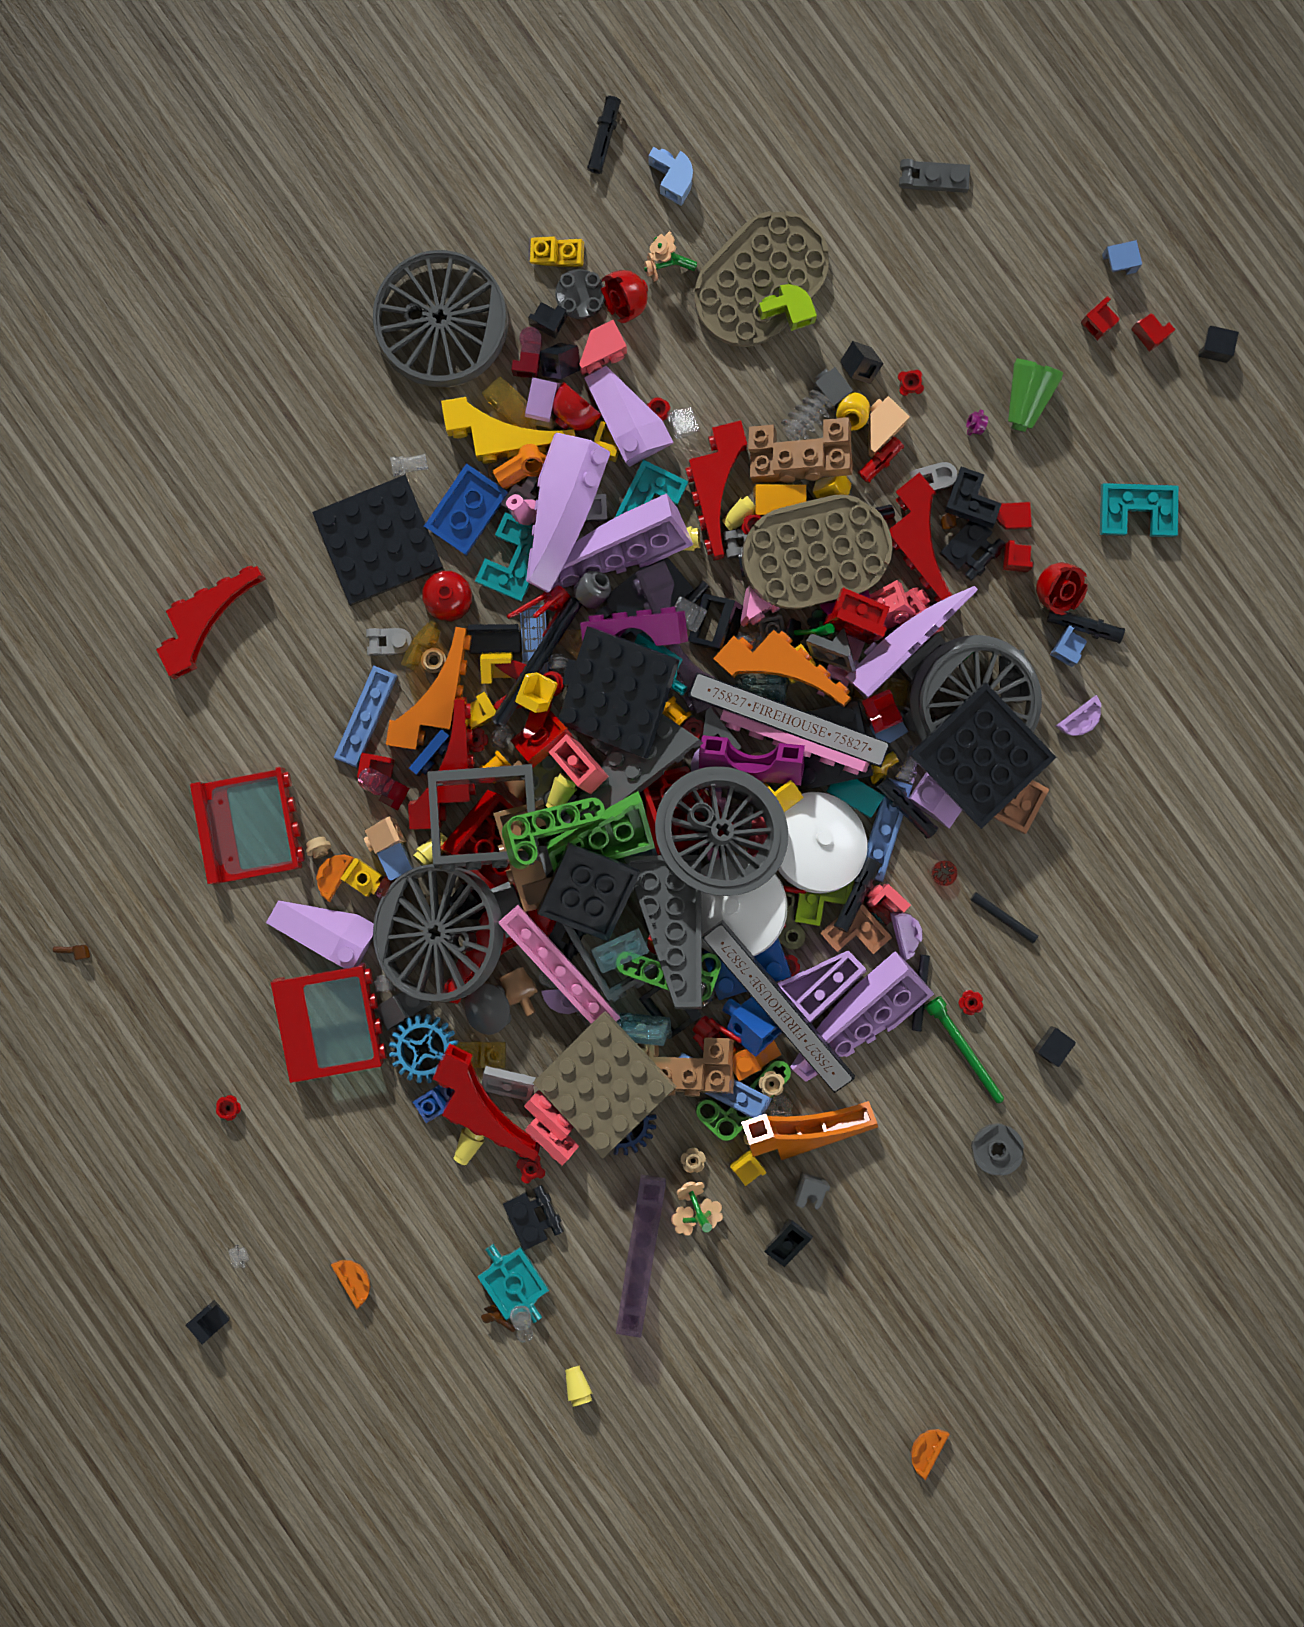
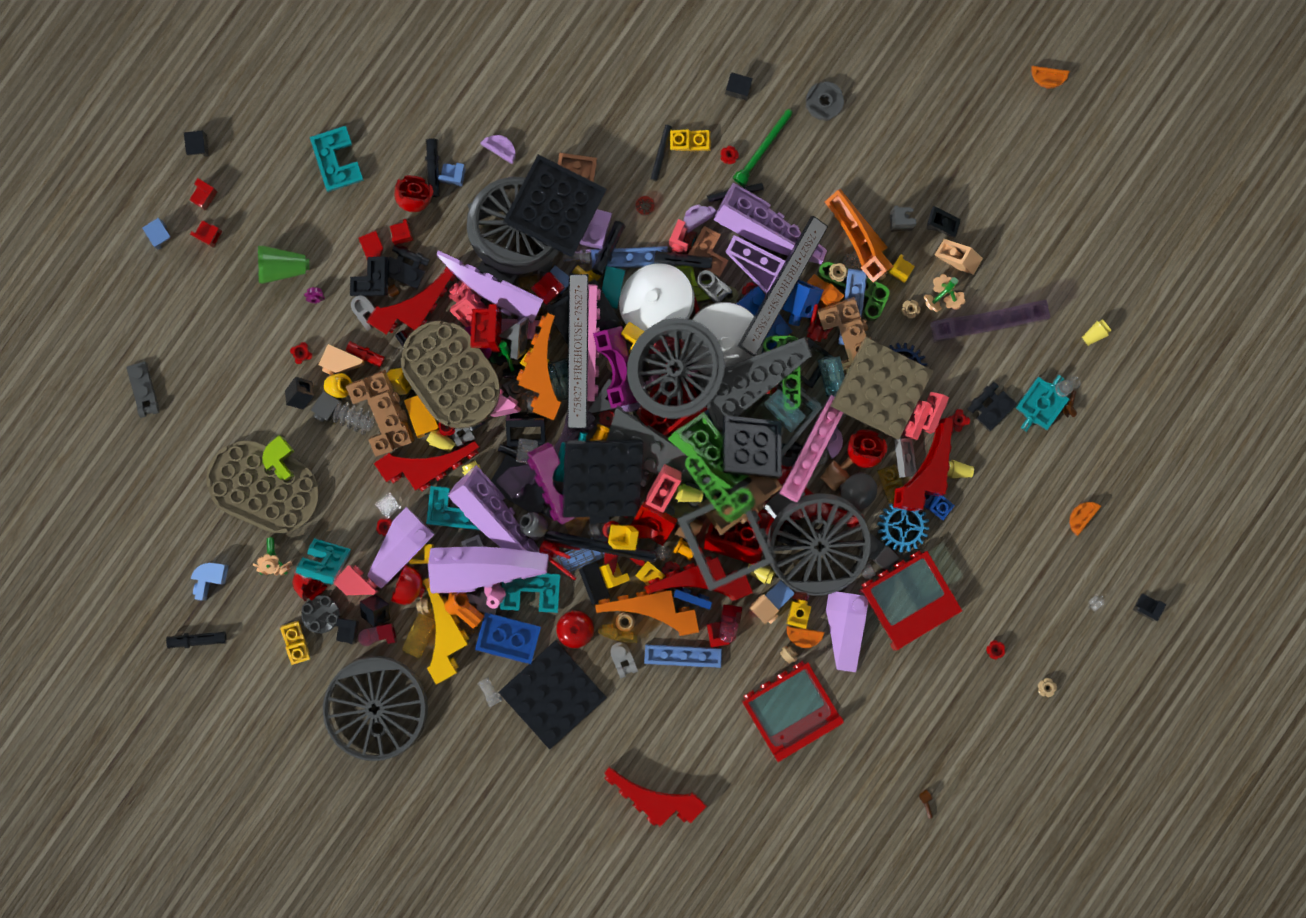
camera: 110 degrees left, 0 degrees up
(163, 1151) = (1042, 687): none -> tan plate
(536, 1038) = (866, 448): none -> red cylinder
(541, 399) = (408, 612): lavender slope -> none
(626, 313) = (333, 561): none -> teal plate
(737, 1247) = (959, 256): none -> light nougat slope
(808, 920) = (714, 287): none -> light grey piece
(1007, 960) = (690, 140): none -> yellow slope

